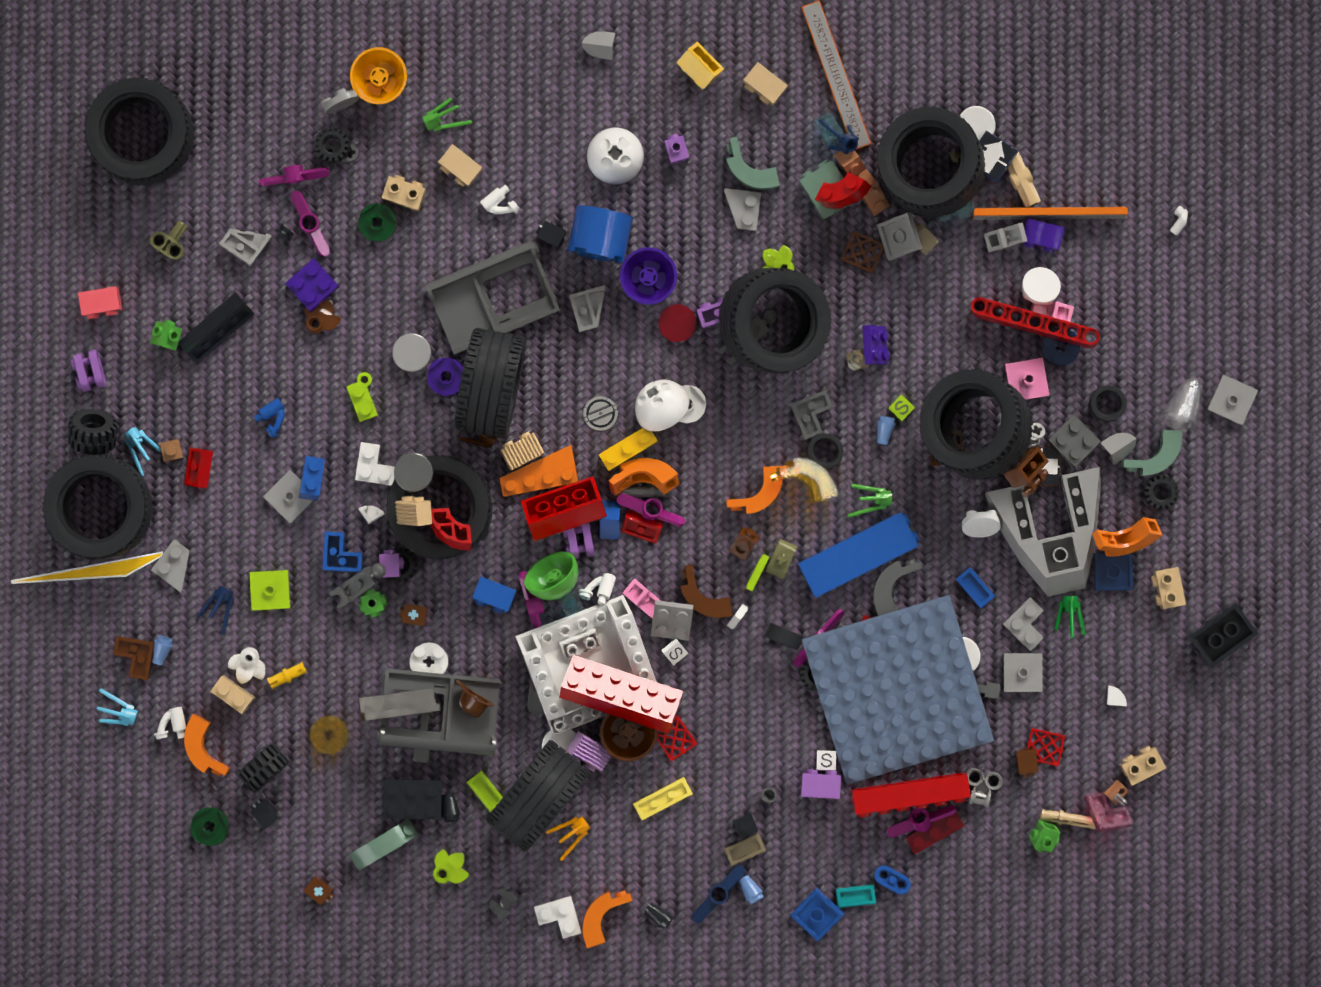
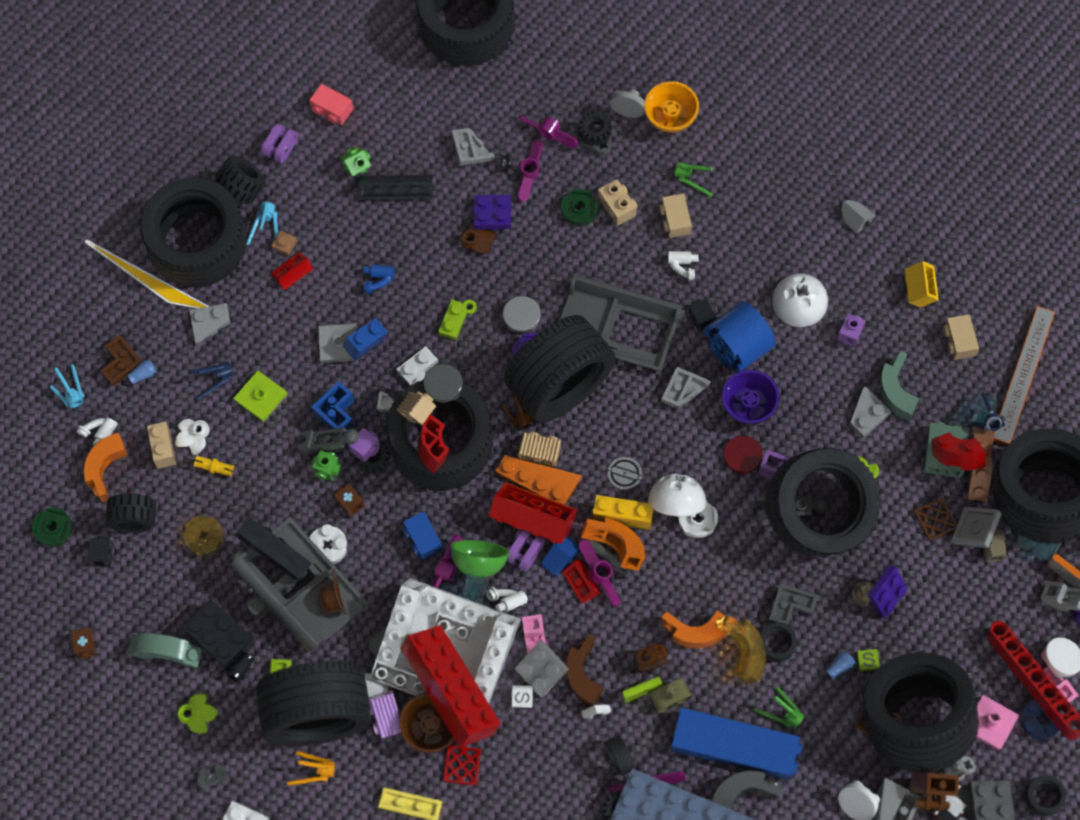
camera: 45 degrees right, 20 degrees down
(170, 241) = (418, 104): olive beam -> none

